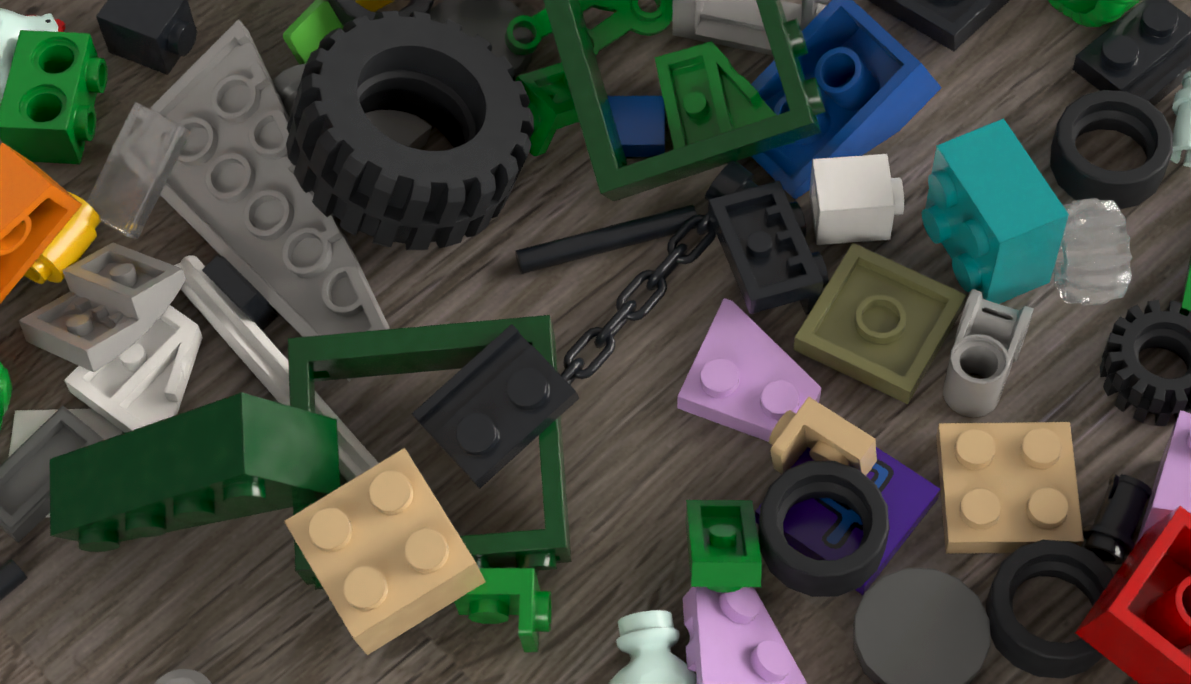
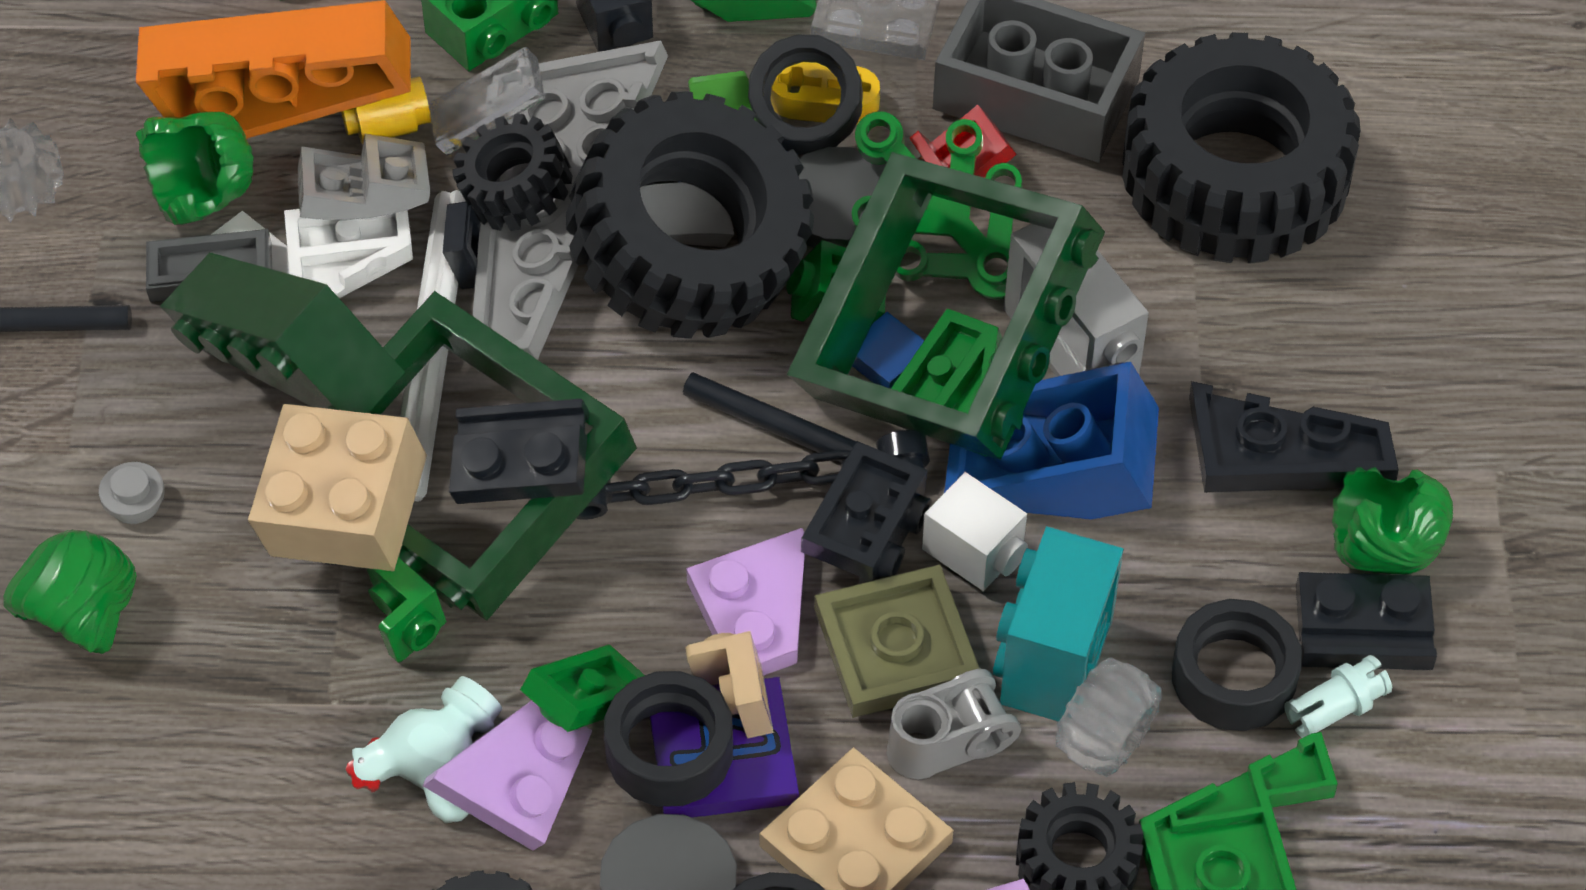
camera: 40 degrees right, 5 degrees down
(207, 183) = (527, 192): none -> black tyre

